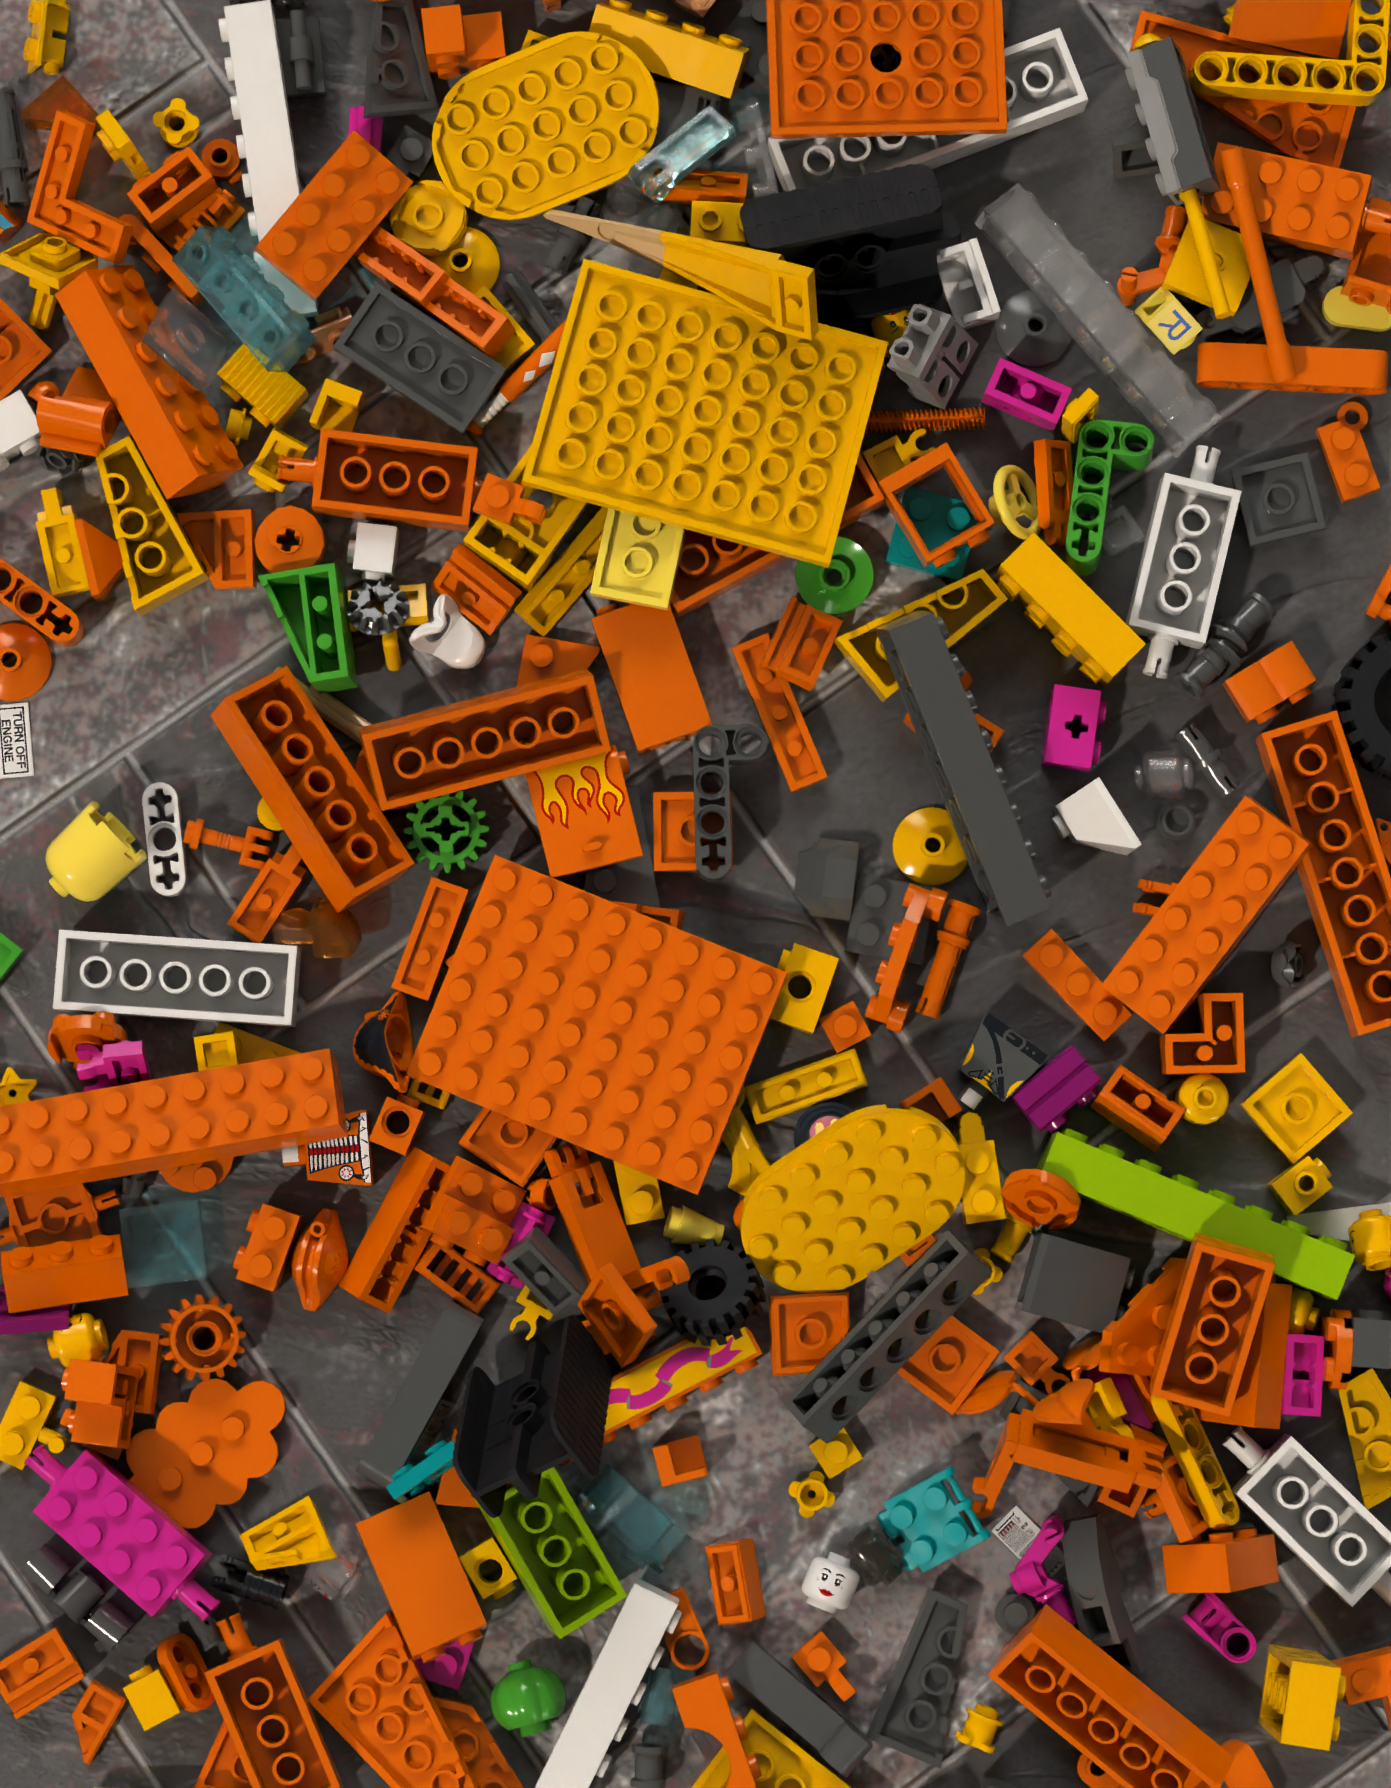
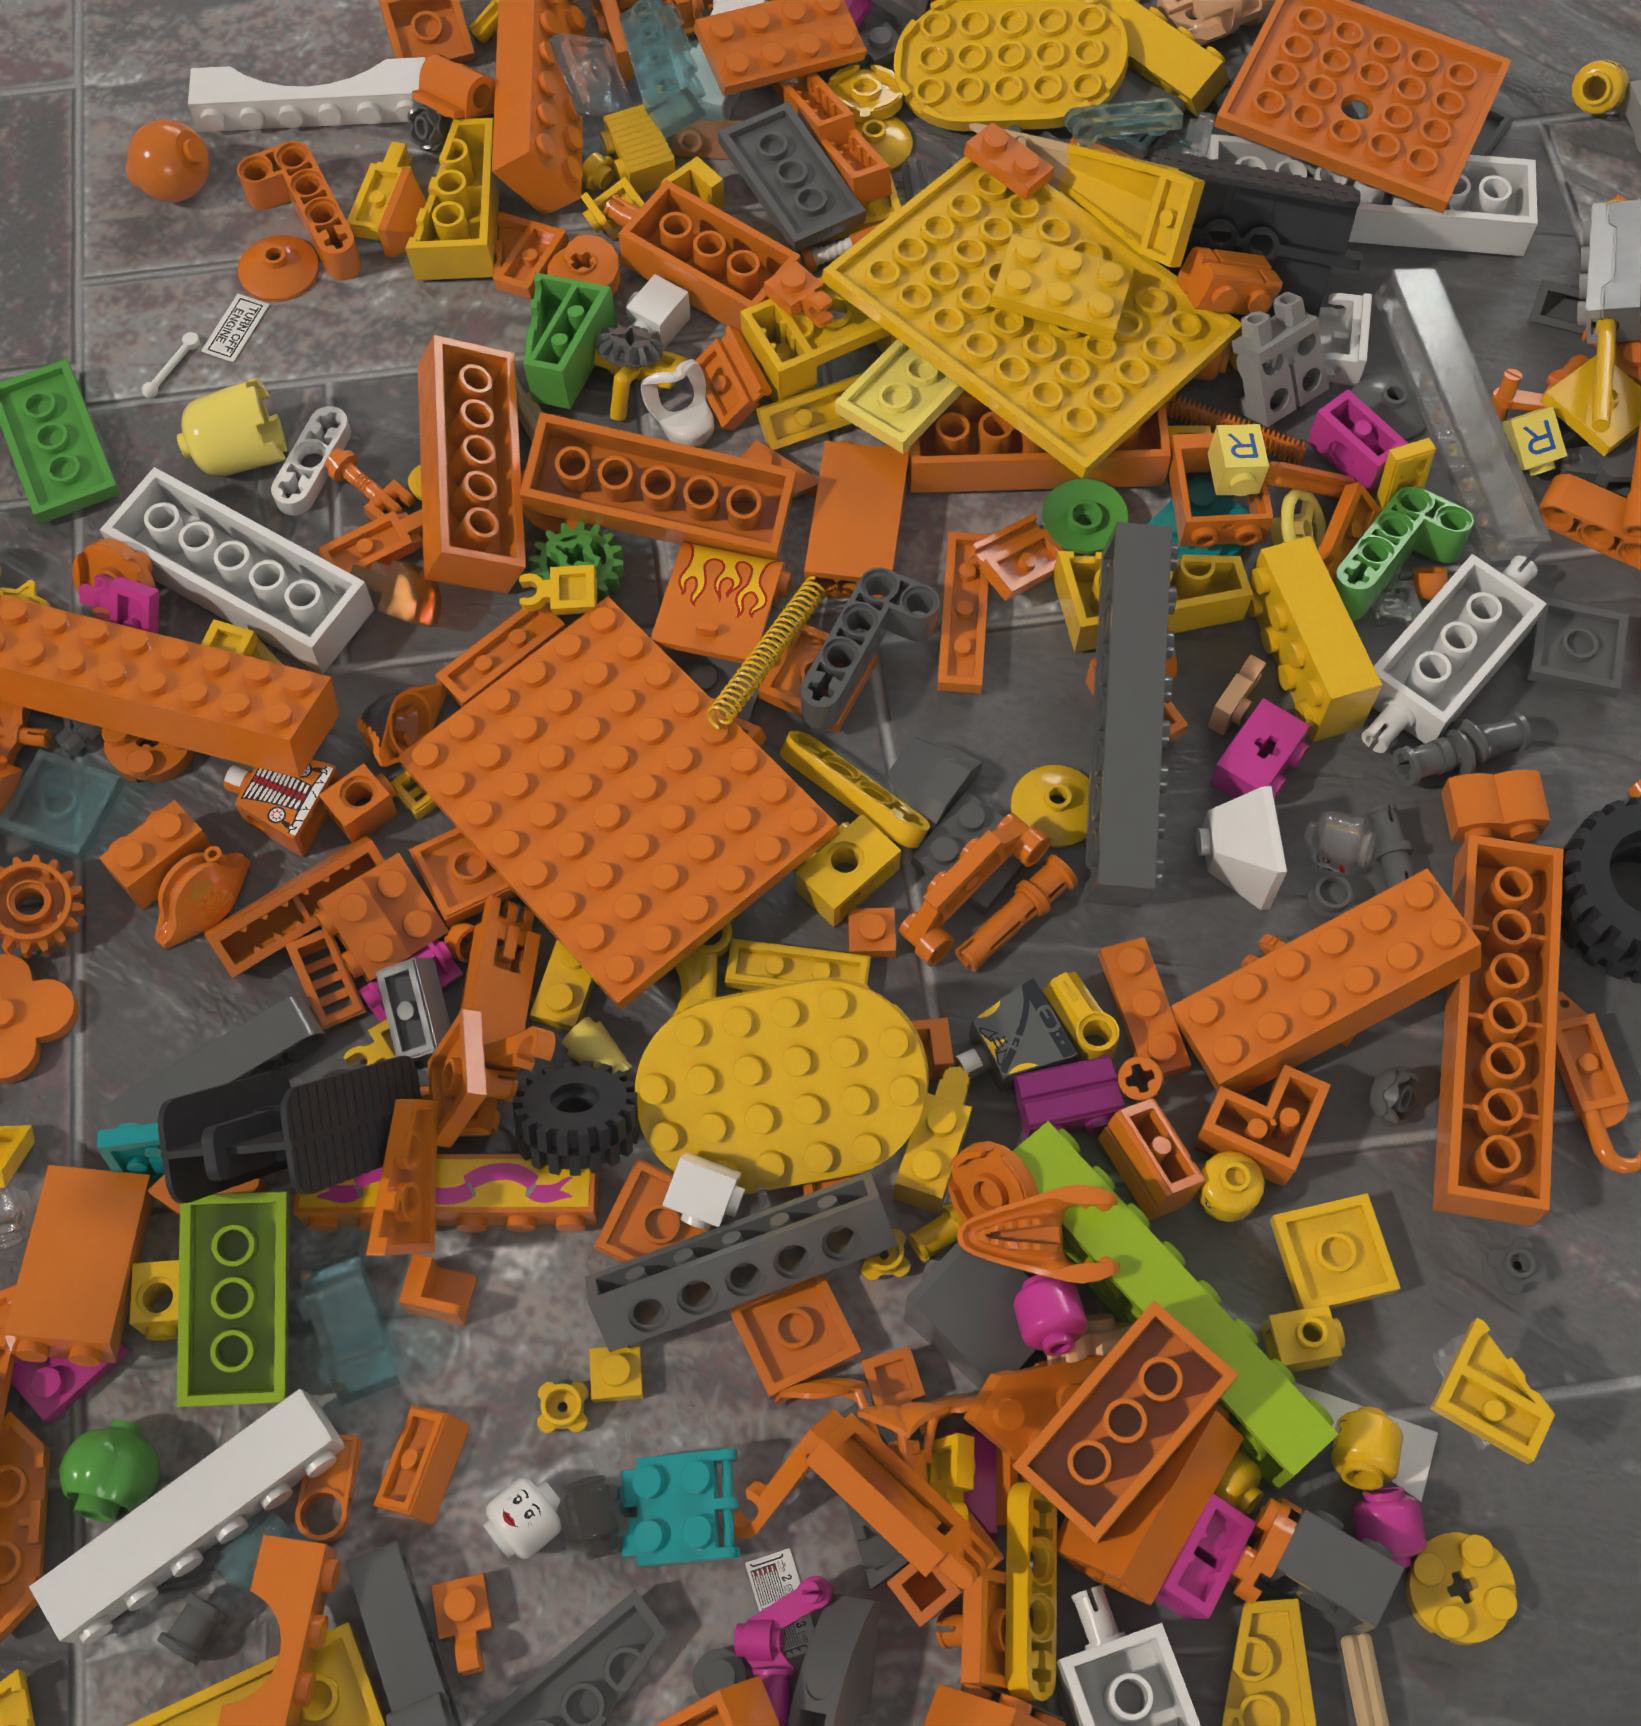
camera: 30 degrees right, 20 degrees down
(461, 866) = (568, 590): none -> yellow plate
(616, 277) = (1008, 161): none -> orange plate
(633, 1416) = (407, 1185): none -> orange wing
(654, 839) = (761, 644): none -> yellow piece
(725, 391) = (1061, 287): none -> yellow plate
(829, 929) = (854, 789): none -> yellow beam
(835, 1301) = (703, 1191): none -> white brick
(861, 312) = (1228, 281): none -> orange brick
(946, 491) = (1238, 459): none -> light yellow brick
(1005, 459) = (1307, 479): none -> orange axle
(1031, 692) = (1234, 703): none -> light nougat plate
(1032, 1017) = (1081, 1016): none -> yellow piece
(1088, 1228) = (1031, 1235): none -> orange animal
(1100, 1061) = (1127, 1071): none -> orange bush
(1124, 1270) = (1050, 1315): none -> dark pink head
(1137, 495) = (1429, 581): none -> orange hinge
(1158, 1259) = (1098, 1339): none -> light nougat plate

